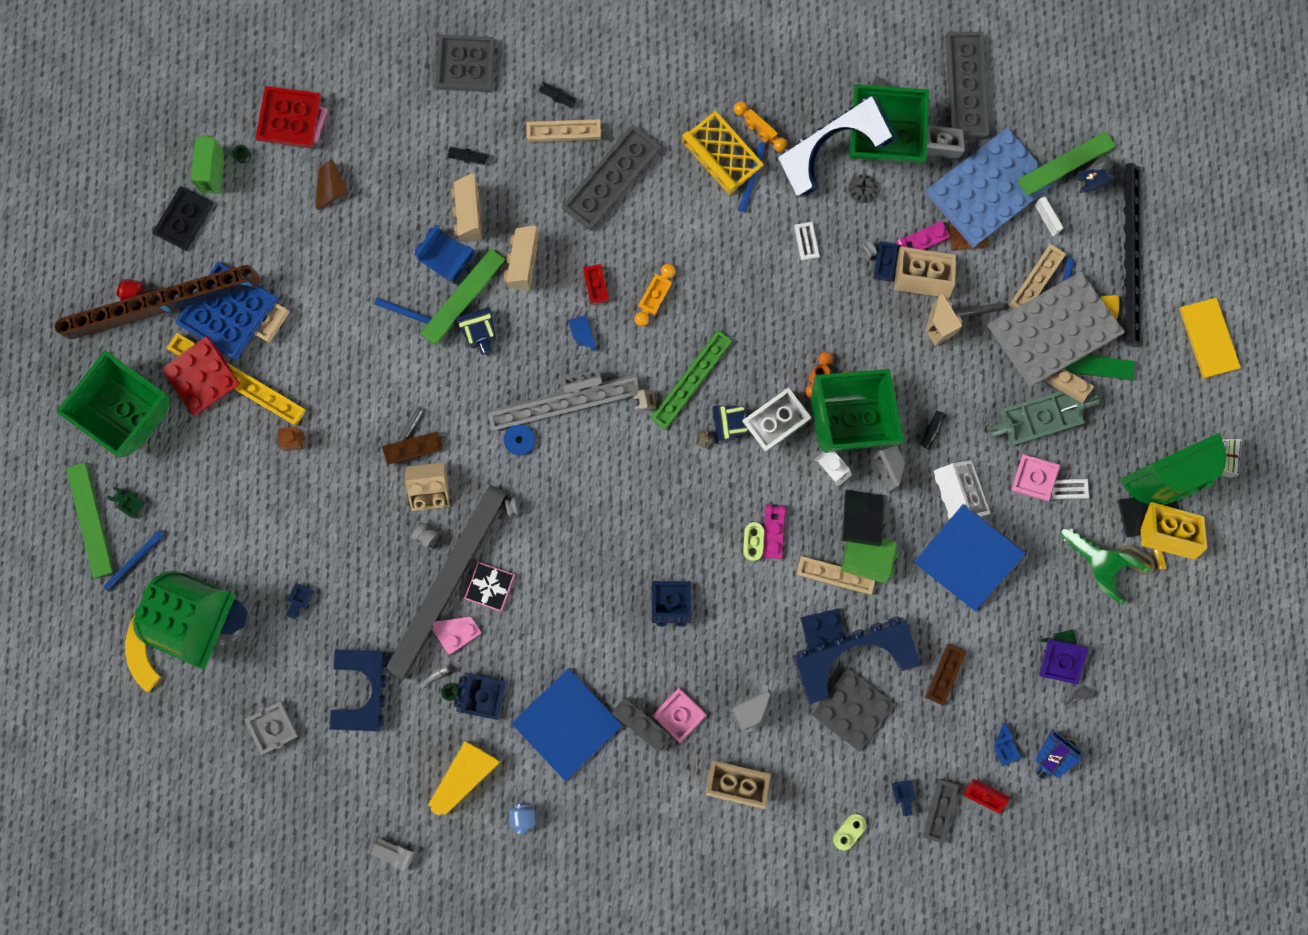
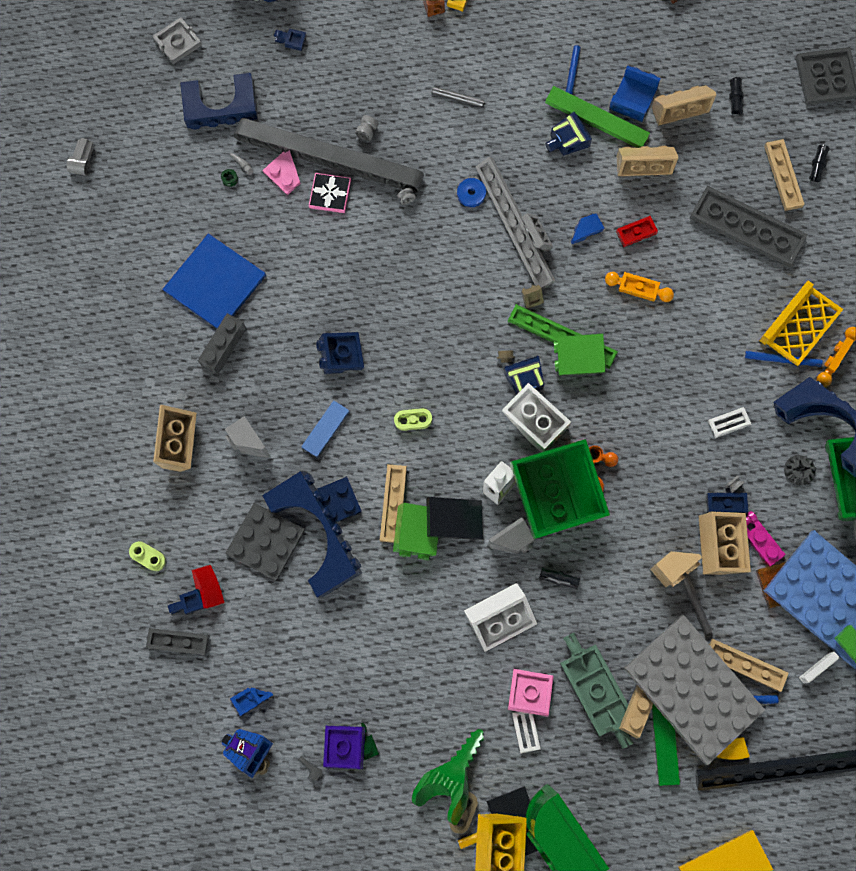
camera: 90 degrees right, 5 degrees down
(412, 448) = (445, 102): reddish brown plate -> none
(427, 486) = (412, 121): tan slope -> none
(464, 774) = (157, 201): yellow slope -> none
(480, 696) = (228, 201): dark blue plate -> none
(522, 818) = (124, 257): medium blue head -> none
(679, 715) = (236, 380): bright pink tile -> none
(718, 365) = (580, 354): none -> bright green brick
(747, 631) = (325, 429): none -> medium blue tile
(773, 532) = (426, 437): dark pink plate -> none
(889, 772) = (209, 586): none -> red slope
(945, 674) = (312, 627): reddish brown plate -> none
(969, 557) = (433, 630): blue tile -> none
(986, 796) = (197, 685): red plate -> none

